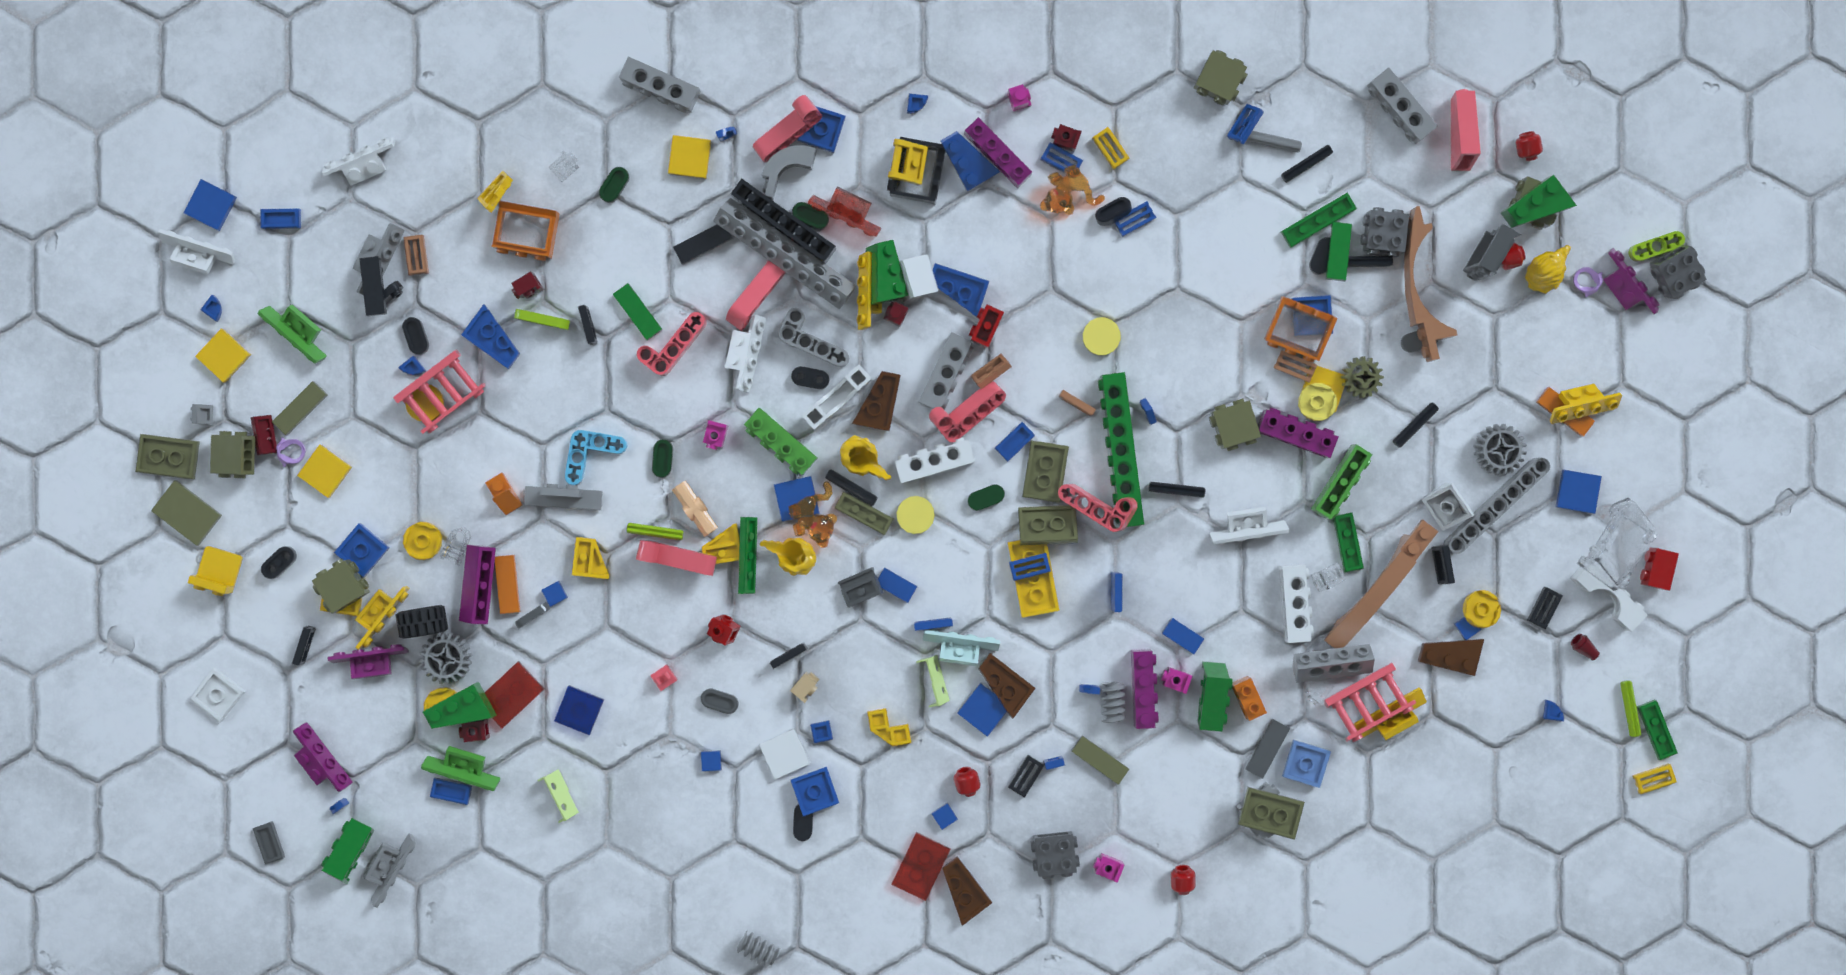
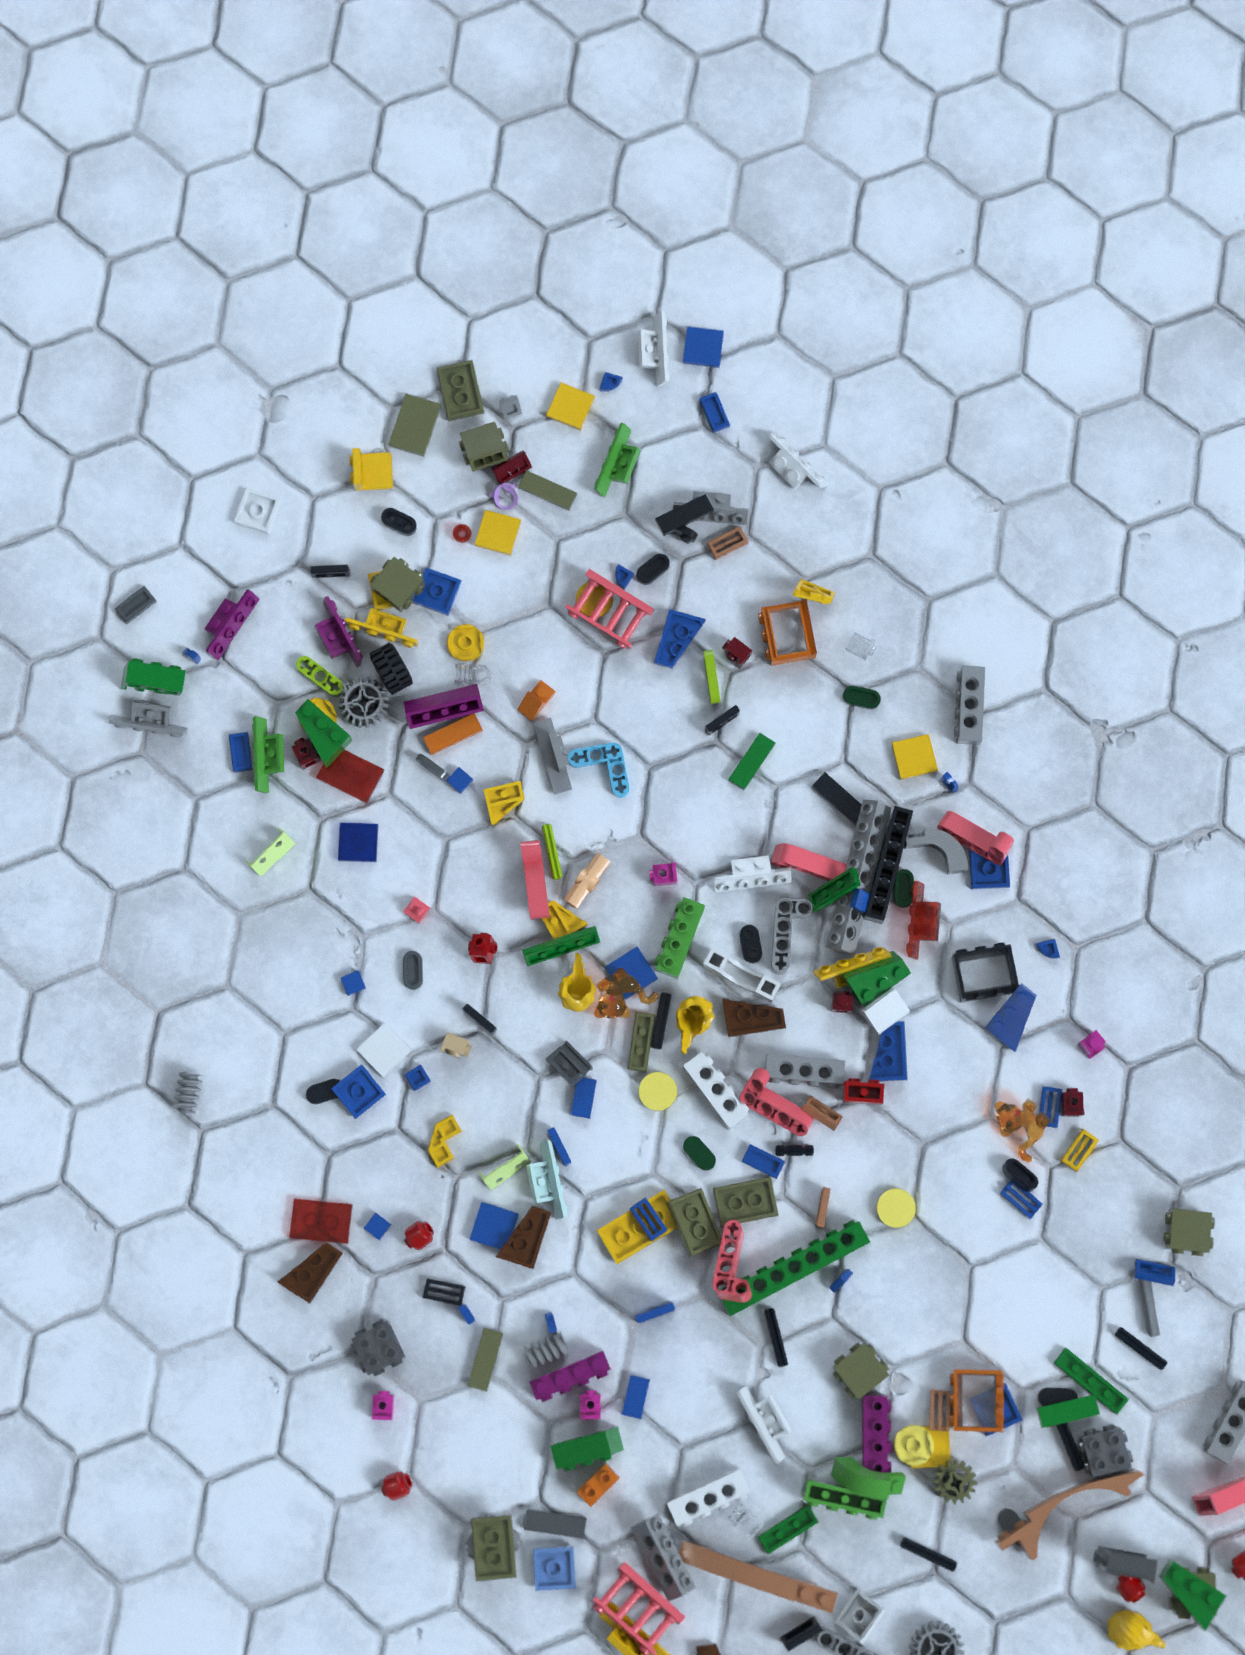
camera: 70 degrees right, 10 degrees down
(307, 502) = (462, 527): none -> clear red plate
(395, 702) = (312, 664): none -> lime beam
(662, 458) = (623, 834): dark green tile -> none
(675, 341) = (738, 806): coral beam -> none
(788, 280) = (834, 889): none -> green tile
(808, 261) = (860, 900): none -> blue tile
(914, 162) = (989, 966): yellow plate -> none
(997, 152) = (1032, 1043): magenta brick -> none
(1015, 409) = (794, 1150): none -> black axle
(1335, 458) = (864, 1481): none -> bright green arch

